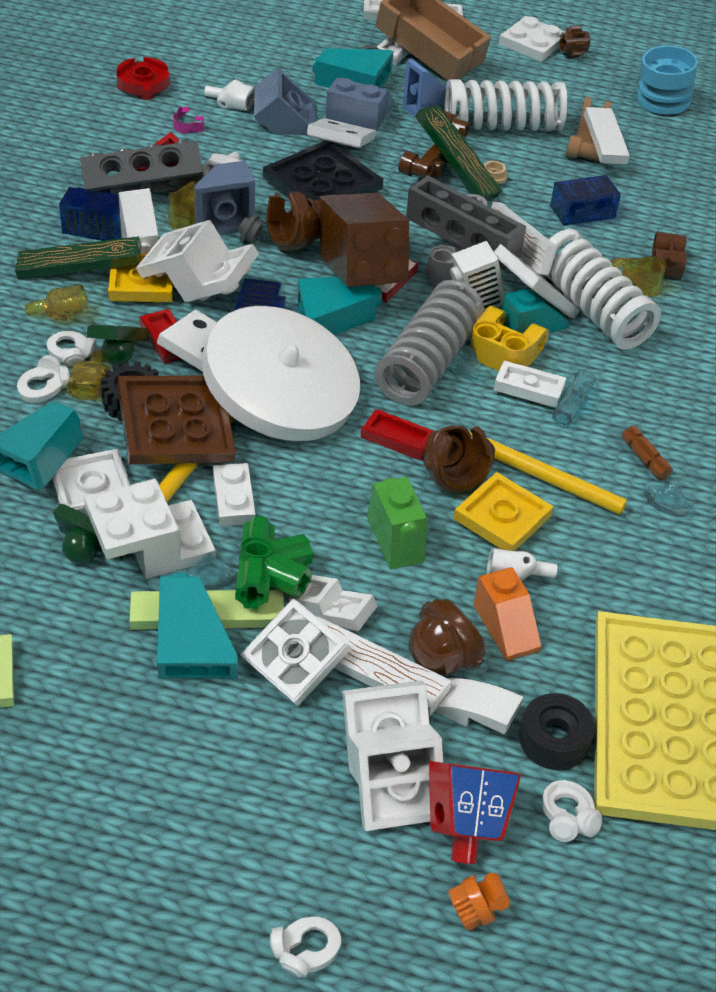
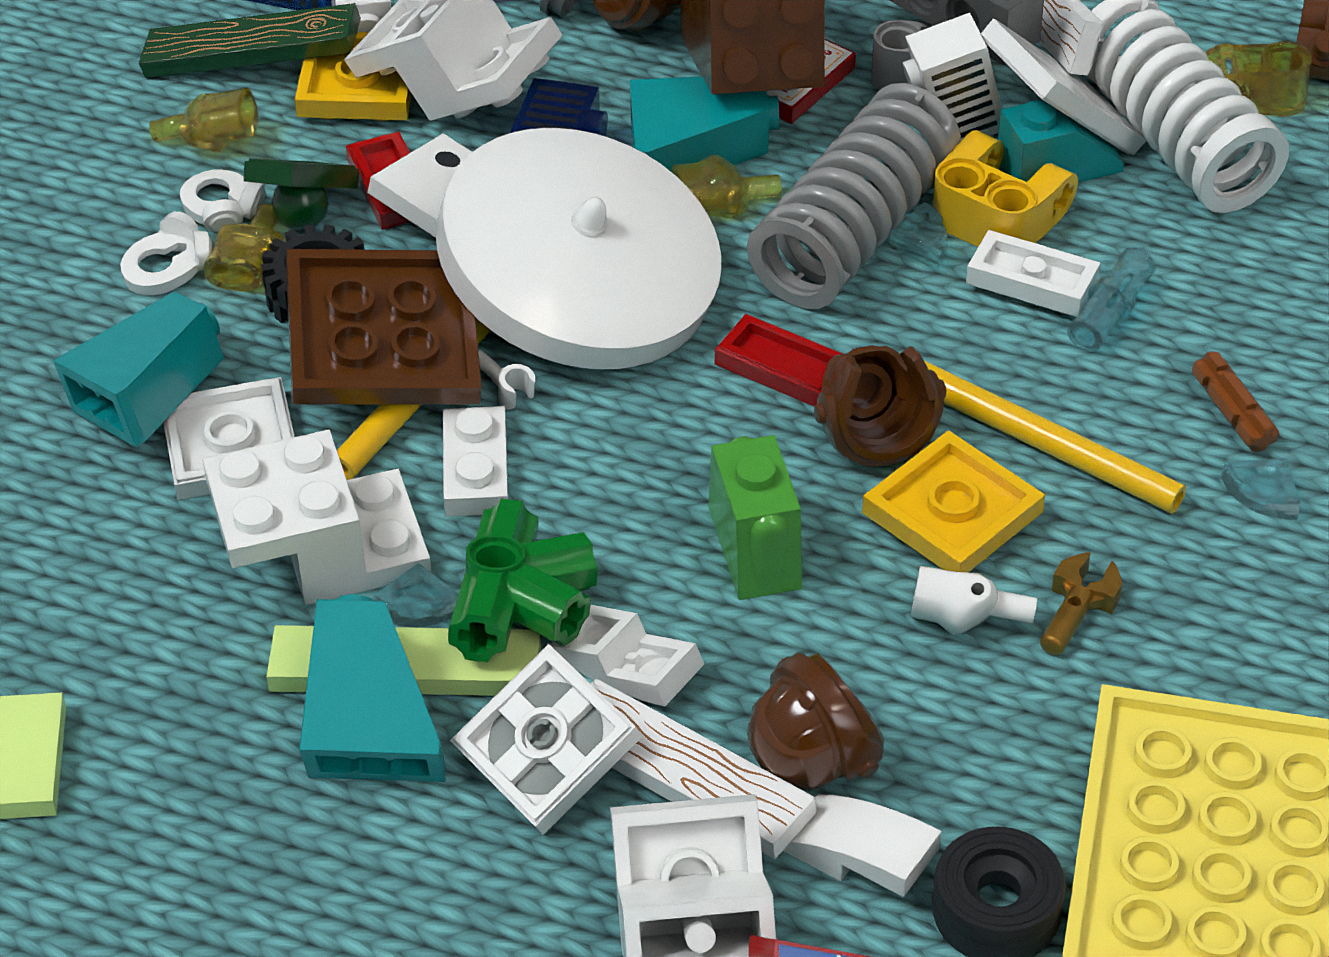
camera: 10 degrees right, 0 degrees up
(80, 541) = (194, 537): dark green tile -> none
(247, 448) = (507, 379): none -> white hand
(354, 337) = (722, 186): none -> clear yellow piece
(507, 613) = (936, 683): orange slope -> none
(577, 564) = (1078, 599): none -> pearl gold bar

